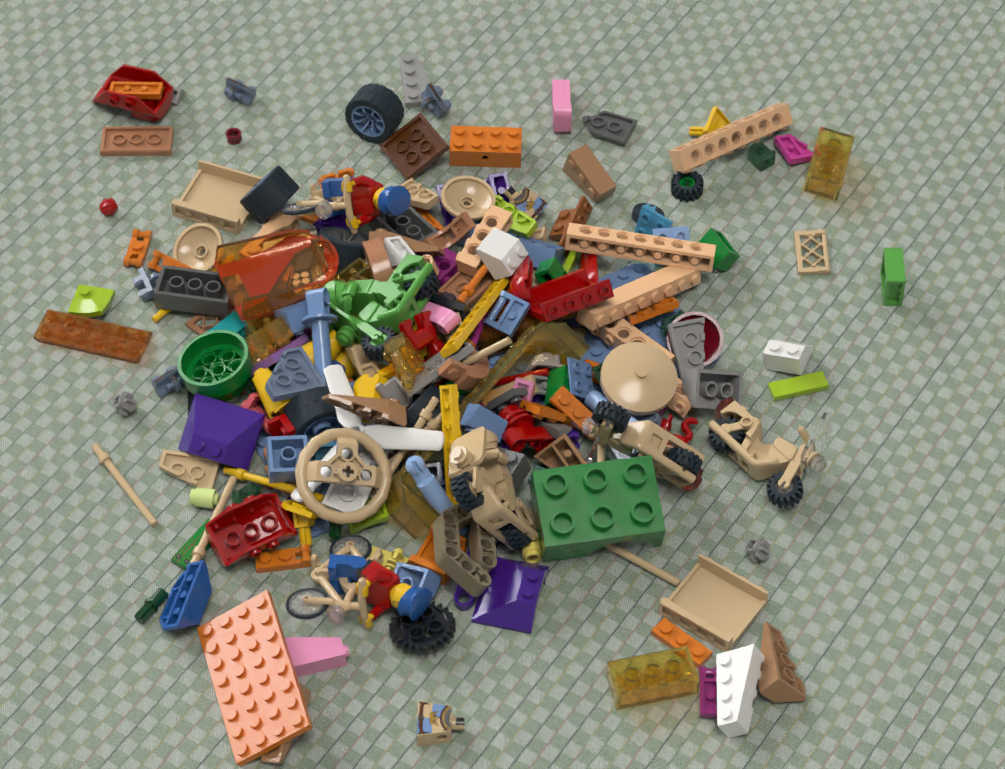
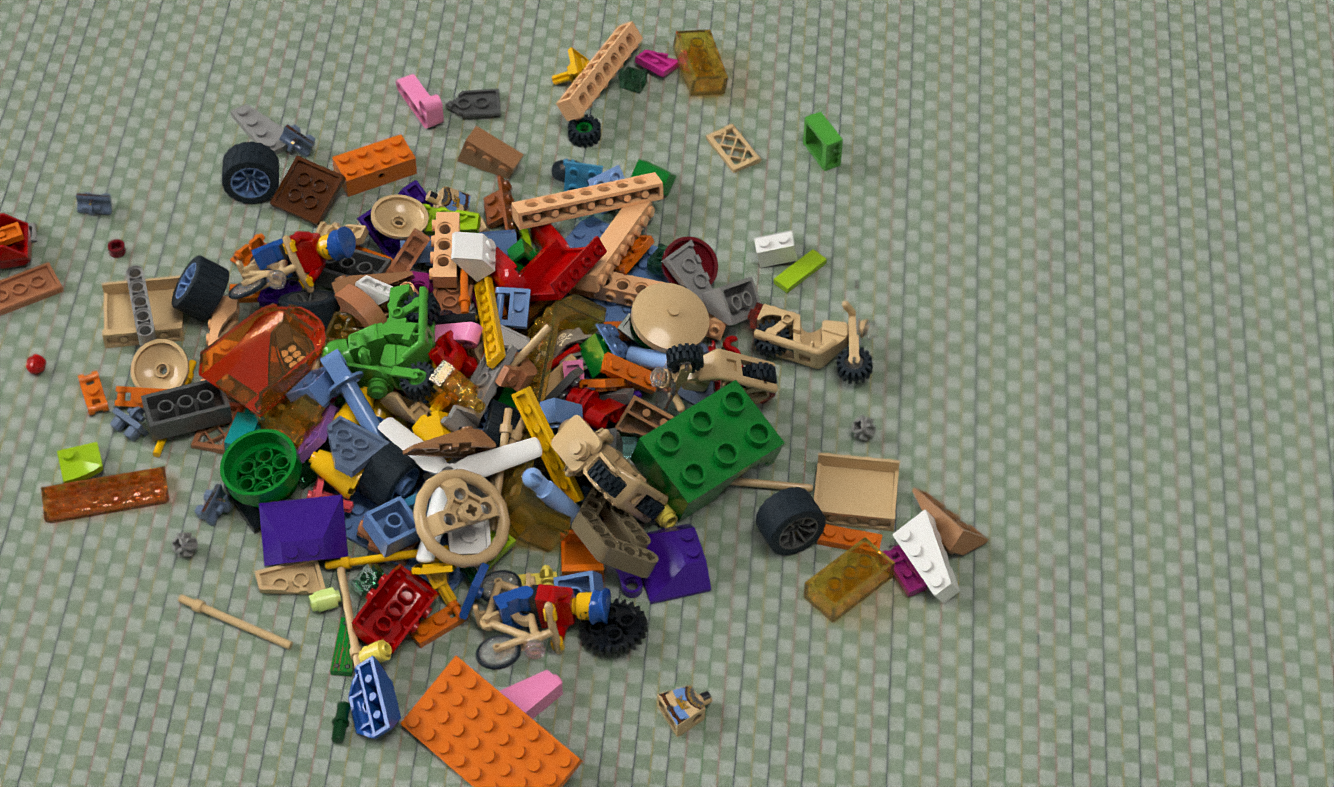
camera: 30 degrees left, 0 degrees up
(213, 189) = (140, 304): none -> light grey beam
(214, 559) = (378, 649): none -> light yellow brick
(281, 426) = (364, 501): red bracket -> none
(323, 542) = (474, 592): none -> blue plate
(488, 336) = (514, 338): none -> white slope
(630, 602) = (790, 521): none -> black wheel

